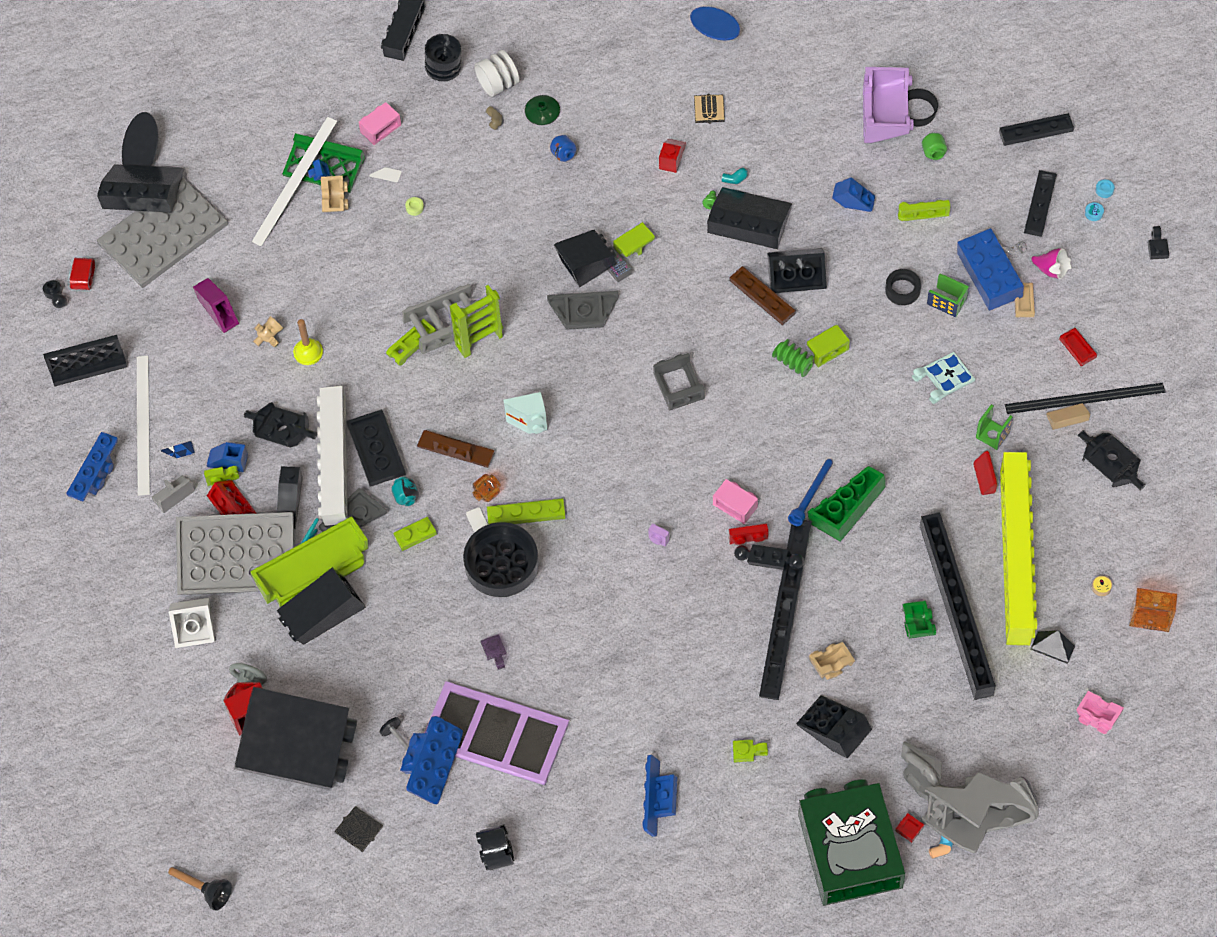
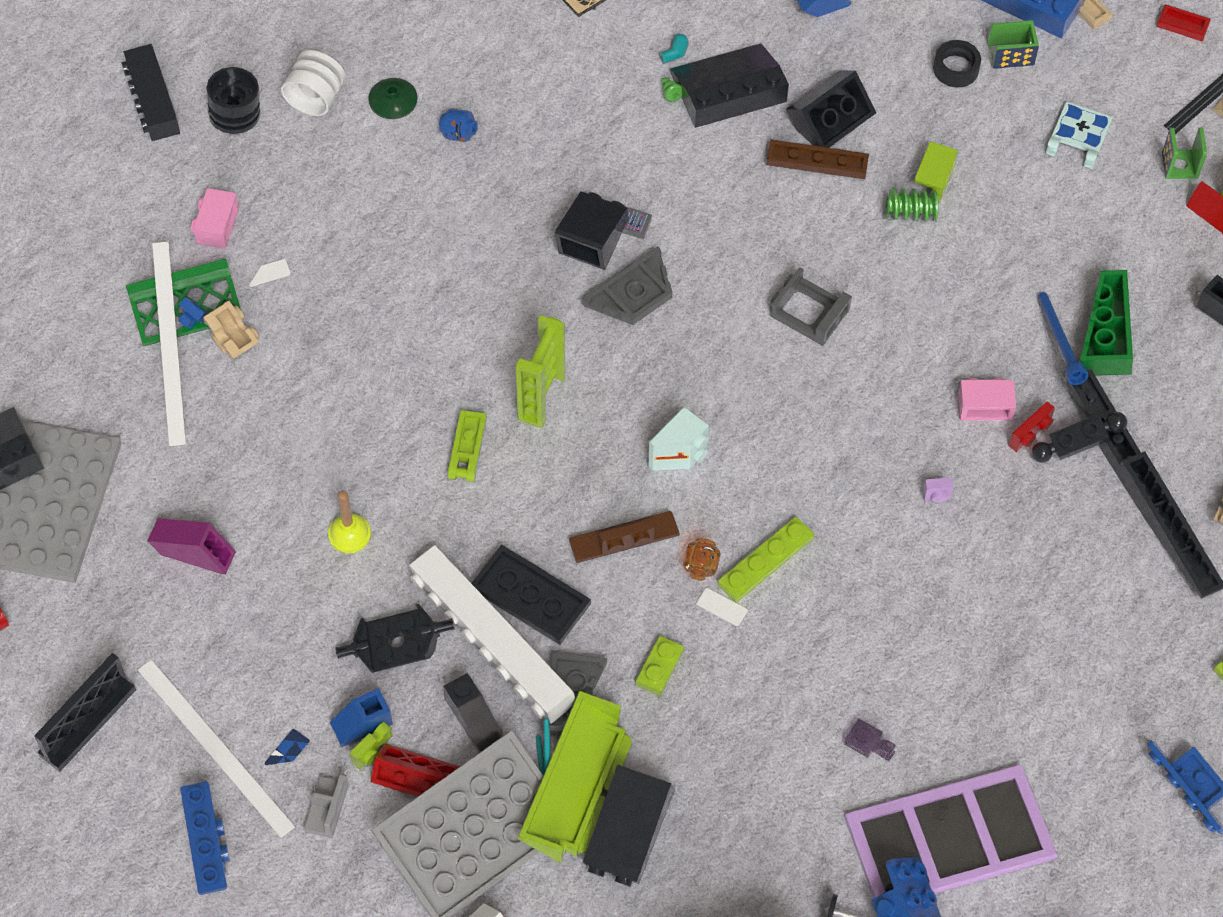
camera: 40 degrees left, 0 degrees up
(267, 332) = (282, 538): tan piece -> none
(405, 490) = (610, 623): teal head -> none
(414, 206) = (336, 289): yellowish green tile -> none
(444, 334) = (502, 413): light grey fence -> none
(492, 541) = (800, 598): black wheel -> none
(495, 116) = (348, 134): dark tan arm -> none
(633, 240) = (629, 179): lime panel -> none
(671, 155) = (586, 65): red slope -> none

